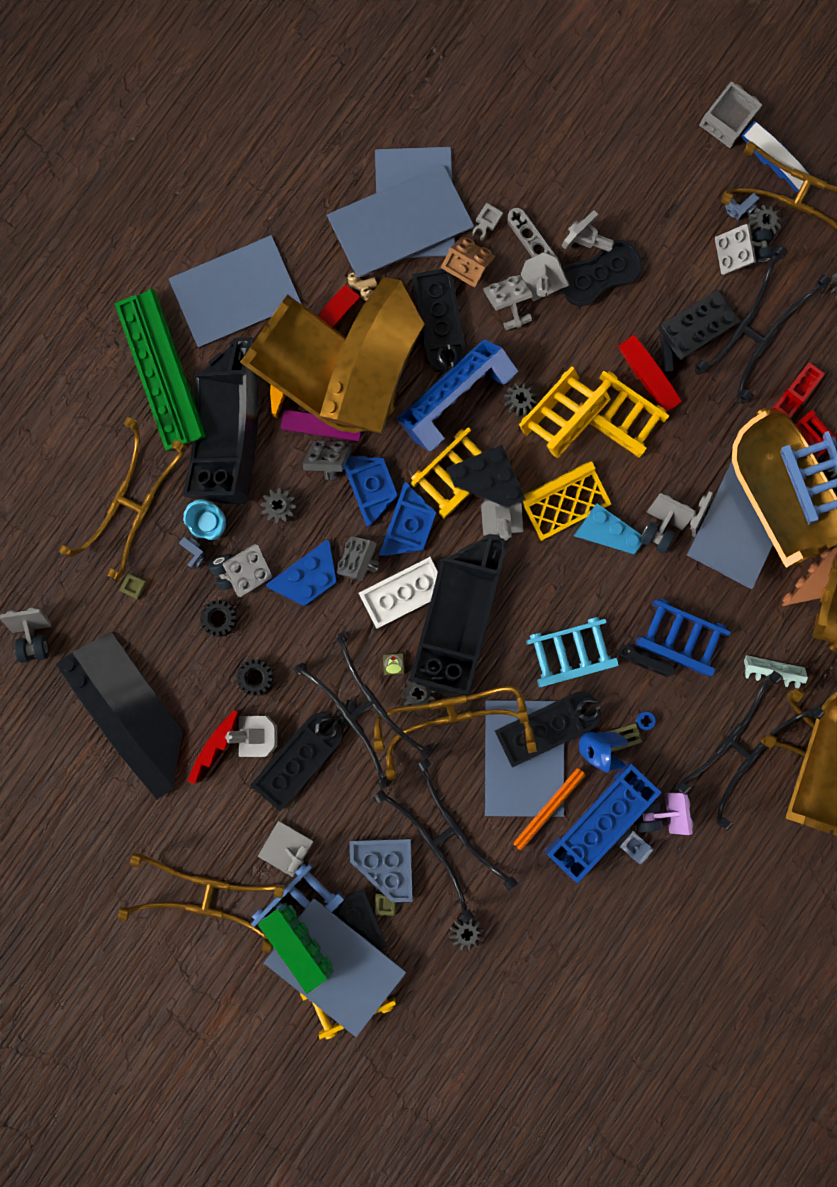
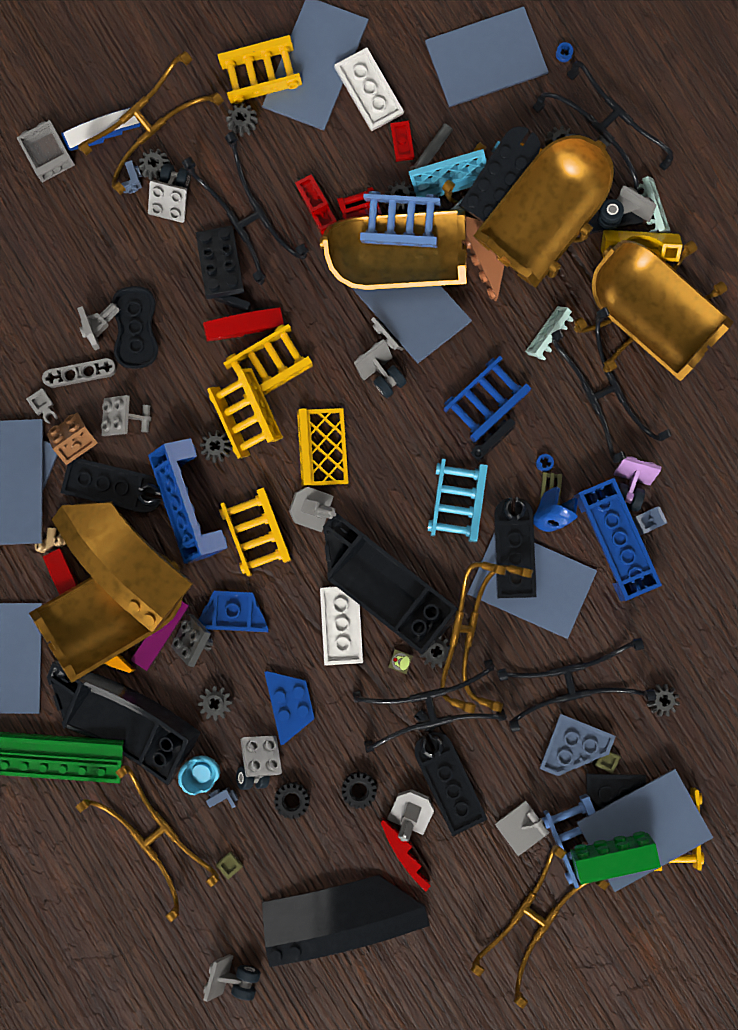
camera: 60 degrees left, 0 degrees up
(357, 558) = (294, 653): dark grey plate -> none
(408, 525) = (283, 593): blue wing -> none
(488, 477) = (273, 505): black plate -> none
(543, 275) = (114, 377): light grey piece -> none
(548, 810) = (585, 580): orange axle -> none
(608, 530) = (365, 421): dark azure wing -> none

